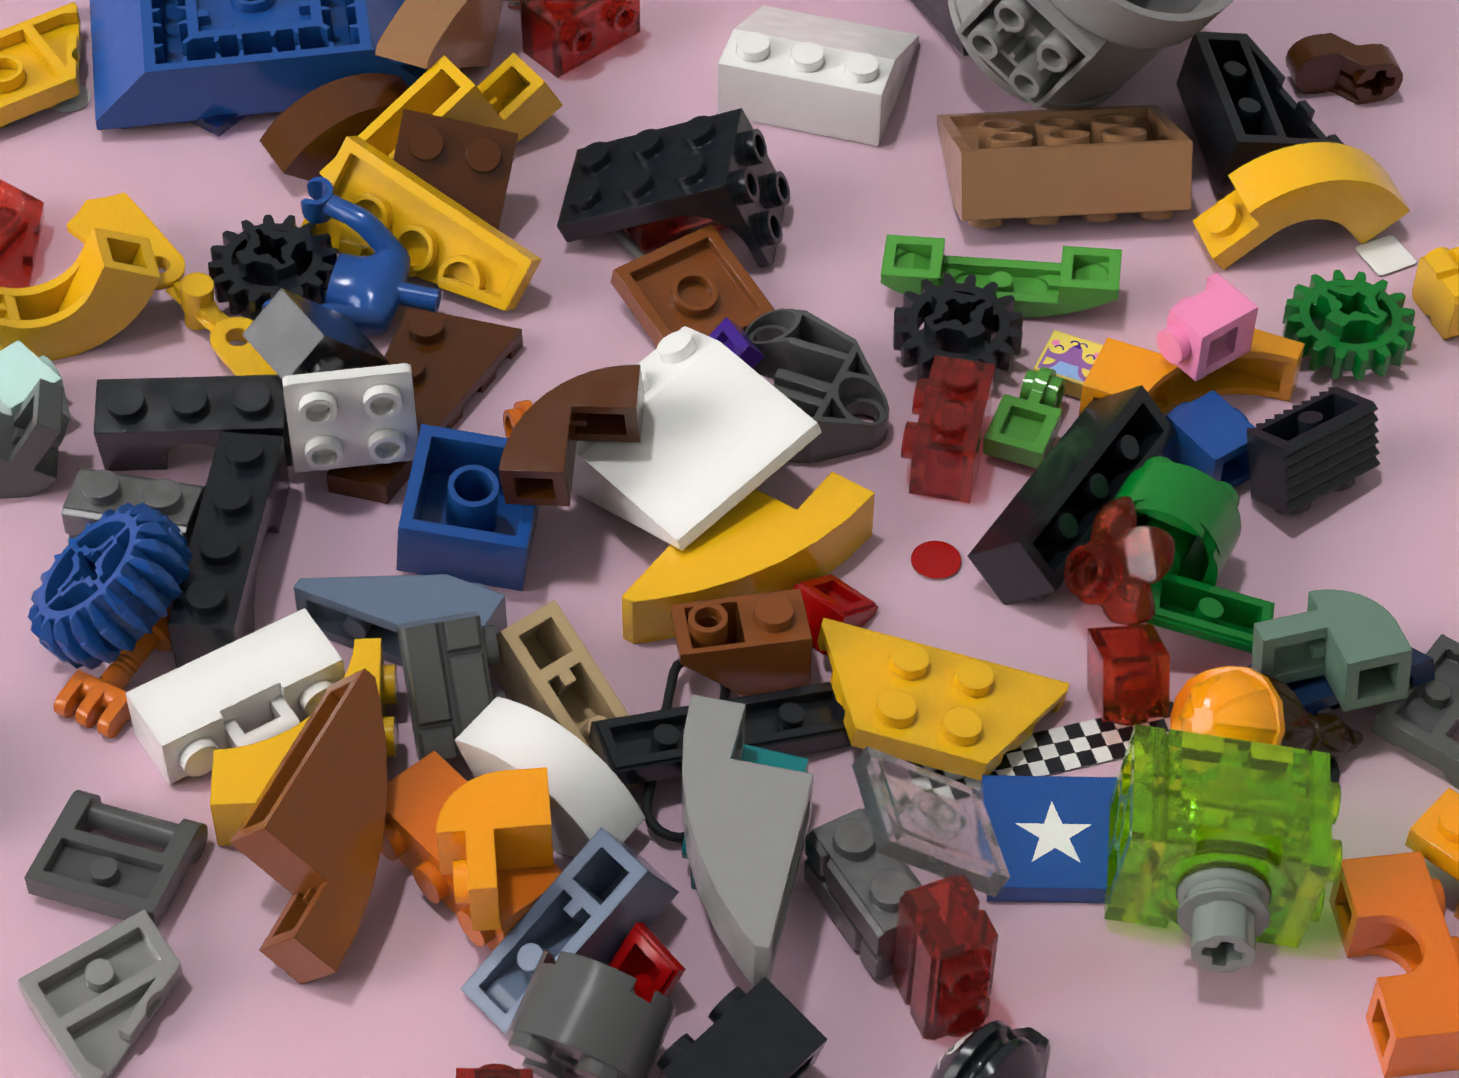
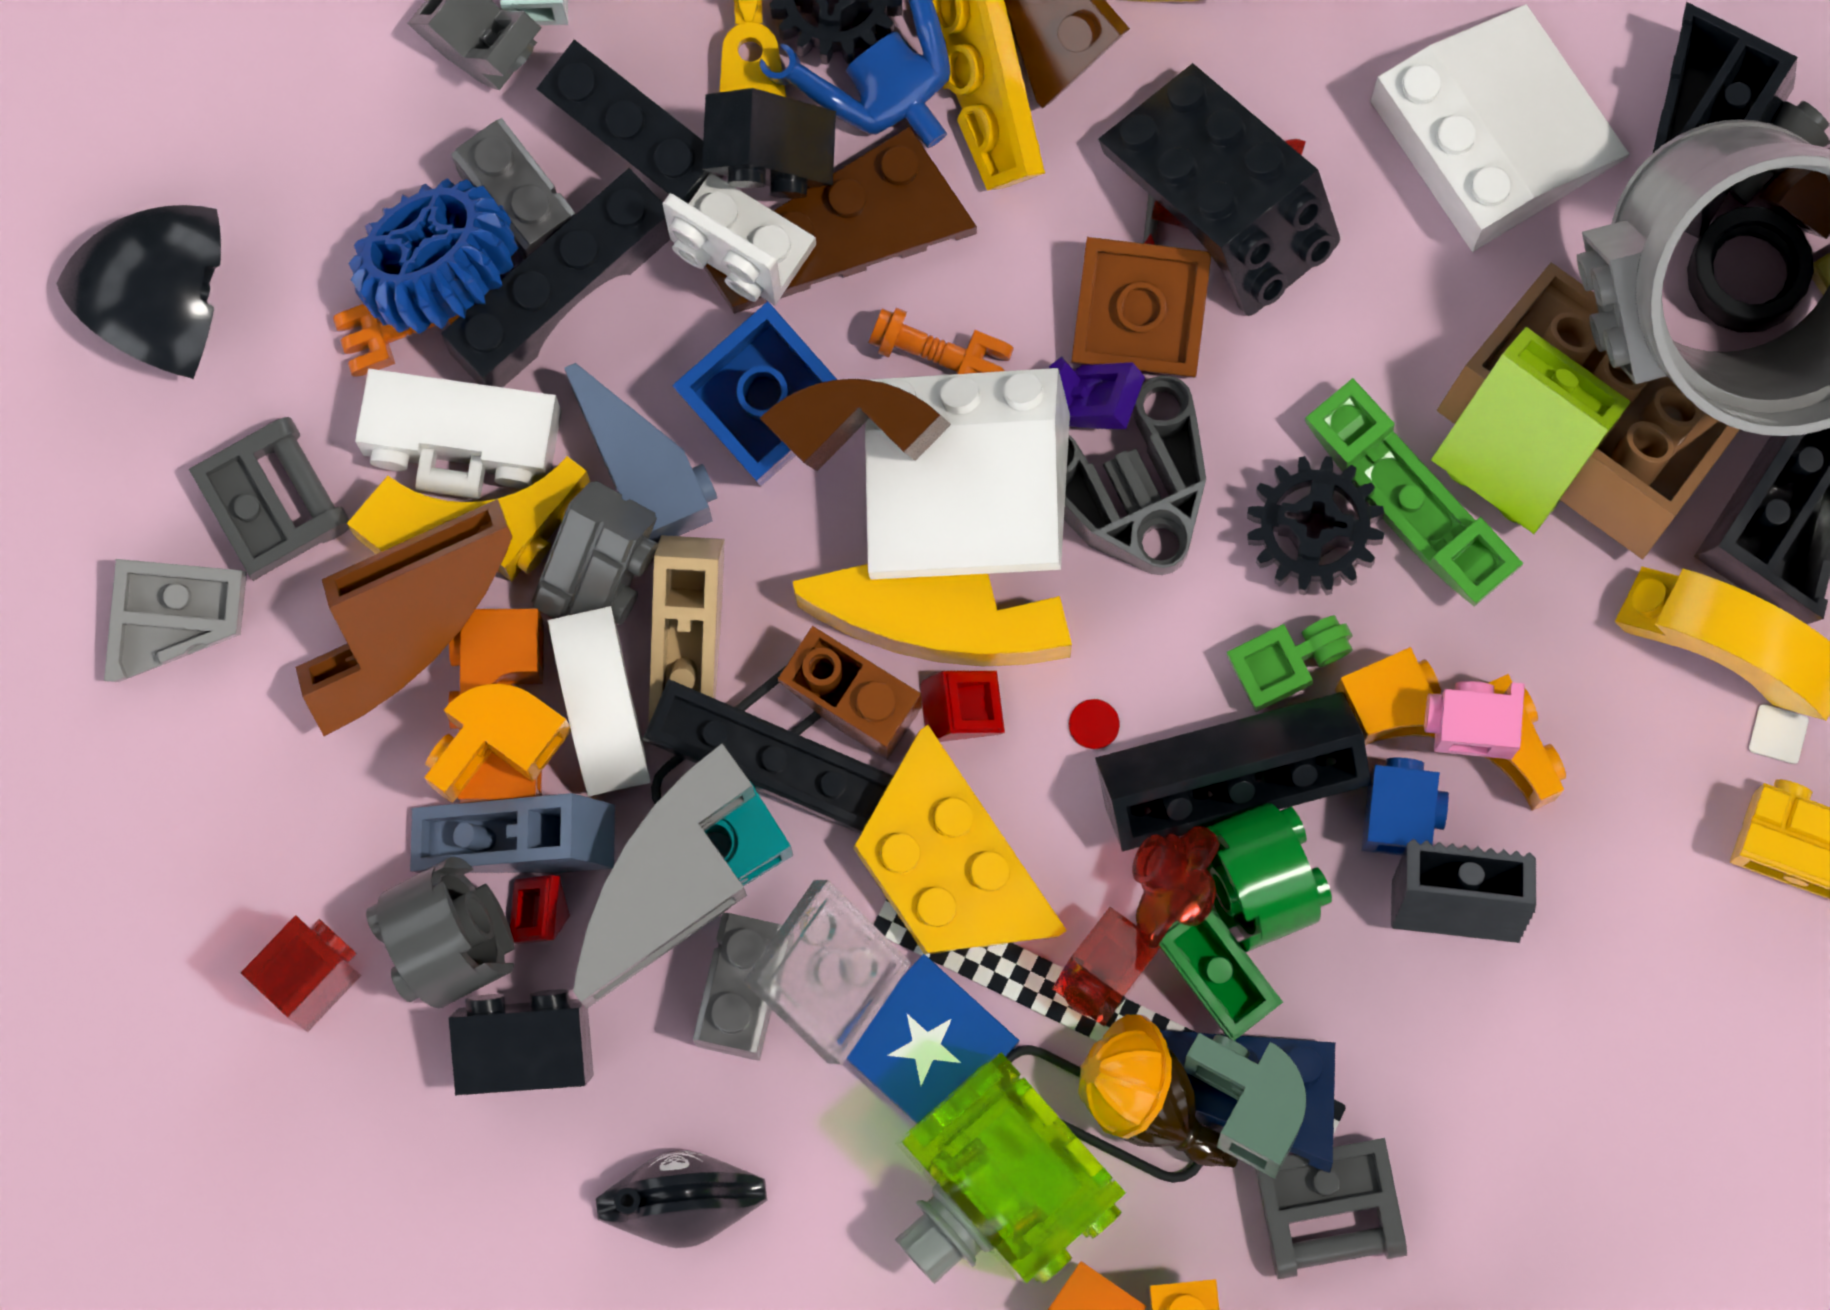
camera: 45 degrees right, 30 degrees up
(945, 957) = (725, 1094): clear red brick -> none
(950, 428) = (1204, 624): clear red brick -> none
(1044, 172) = (1529, 430): none -> lime panel
(1070, 359) = (1384, 627): tile -> none
(1349, 324) = (1671, 784): green gear -> none

